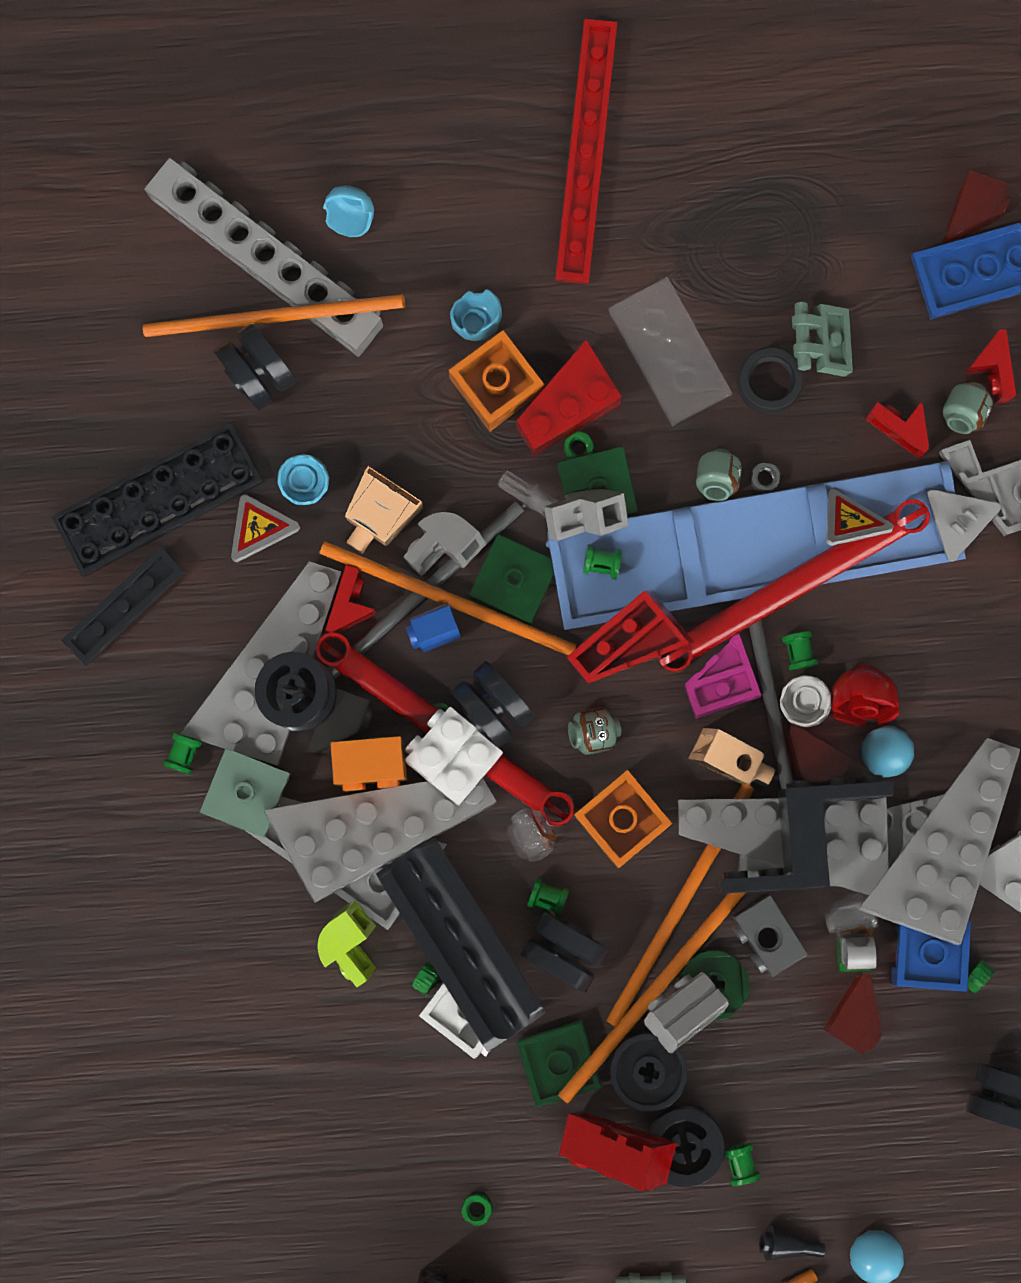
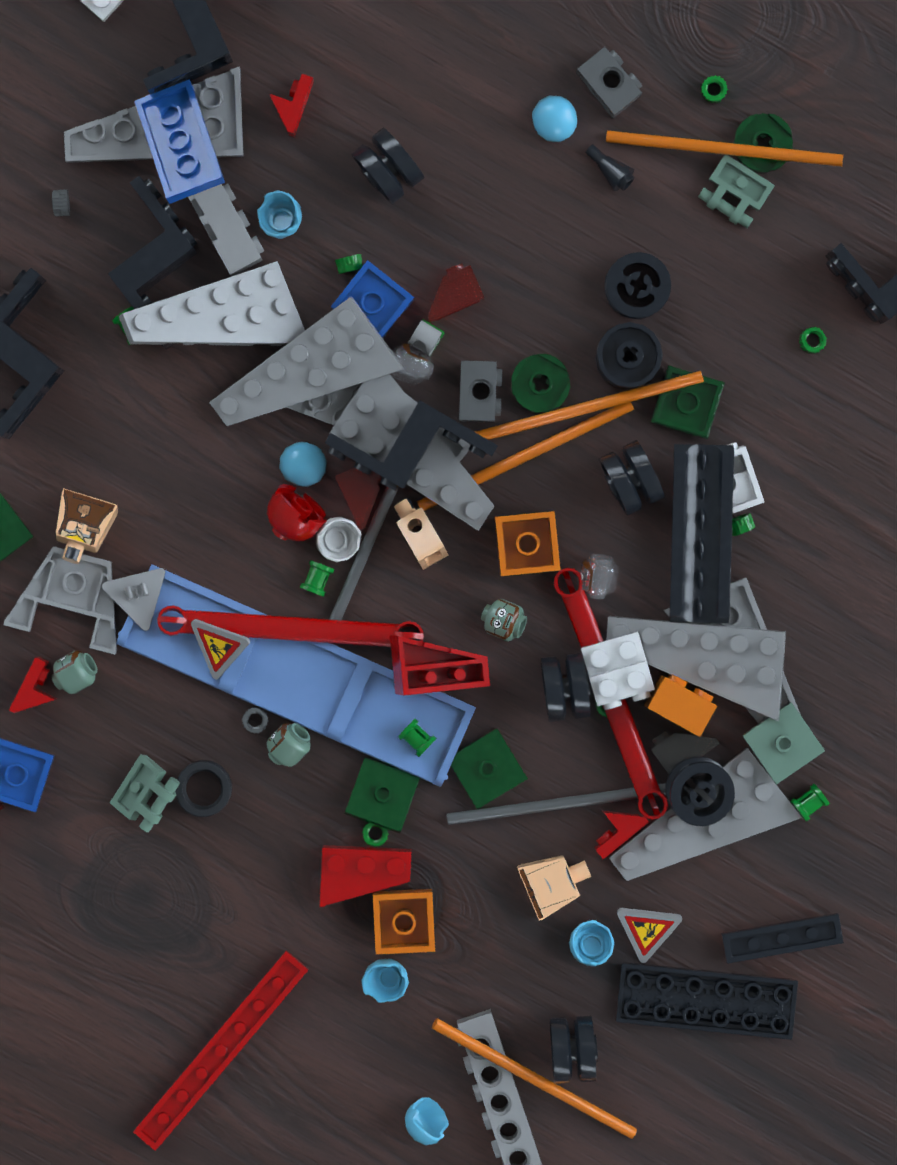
camera: 155 degrees left, 5 degrees up
(341, 941) = (784, 591): lime brick -> none
(433, 628) = (571, 770): blue brick -> none
(443, 597) = (545, 786): orange piece -> none
(444, 534) = (516, 834): light grey brick -> none
(530, 495) = (434, 821): clear axle -> none
(548, 897) = (616, 524): green bush -> none
(586, 511) = (403, 781): light grey brick -> none
(617, 1150) = (688, 315): red wedge -> none
(670, 351) = (260, 859): clear tile -> none
(685, 1011) = (575, 379): light grey brick -> none
(723, 681) = (387, 593): dark pink wing -> none
(741, 1164) = (606, 246): green bush -> none
(908, 434) = (129, 681): red slope -> none

